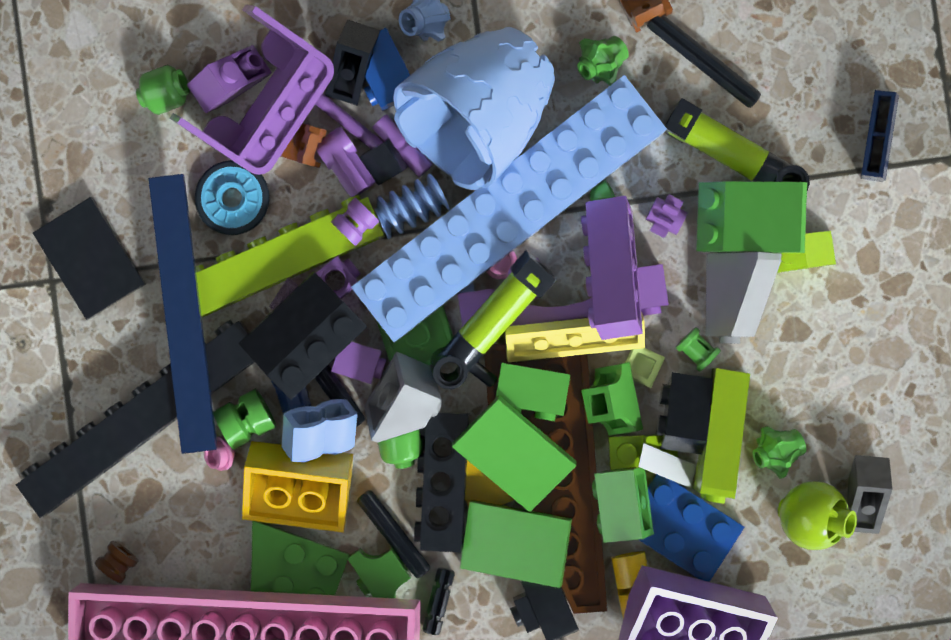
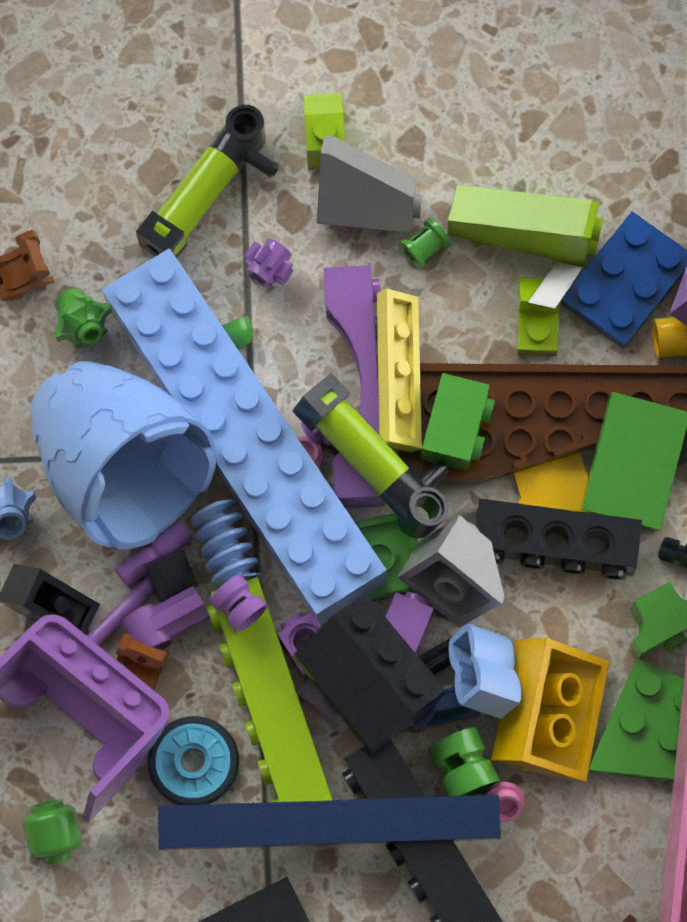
camera: 85 degrees left, 15 degrees down
(228, 78) = (49, 750): medium lavender slope -> none
(384, 72) = (68, 557): blue slope -> none
(393, 534) = (613, 605): black axle -> none
(402, 449) = (517, 584): bright green head -> none
(514, 453) = (529, 446): bright green tile -> none
(612, 268) = (323, 317): medium lavender brick -> none
(613, 400) = (475, 337): bright green brick -> none
(623, 504) = (596, 334): bright green brick -> none
(644, 365) = (439, 308): yellowish green tile -> none
(685, 413) = (497, 258): black brick -> none
(704, 60) = (96, 210): black axle -> none
(751, 217) = (280, 163): bright green slope -> none
(778, 450) = (546, 166): bright green rock -> none
(816, 516) = (624, 129): lime brick -> none
(869, 491) = (603, 77): flat silver slope -> none
(893, 98) = (204, 26): dark blue piece -> none

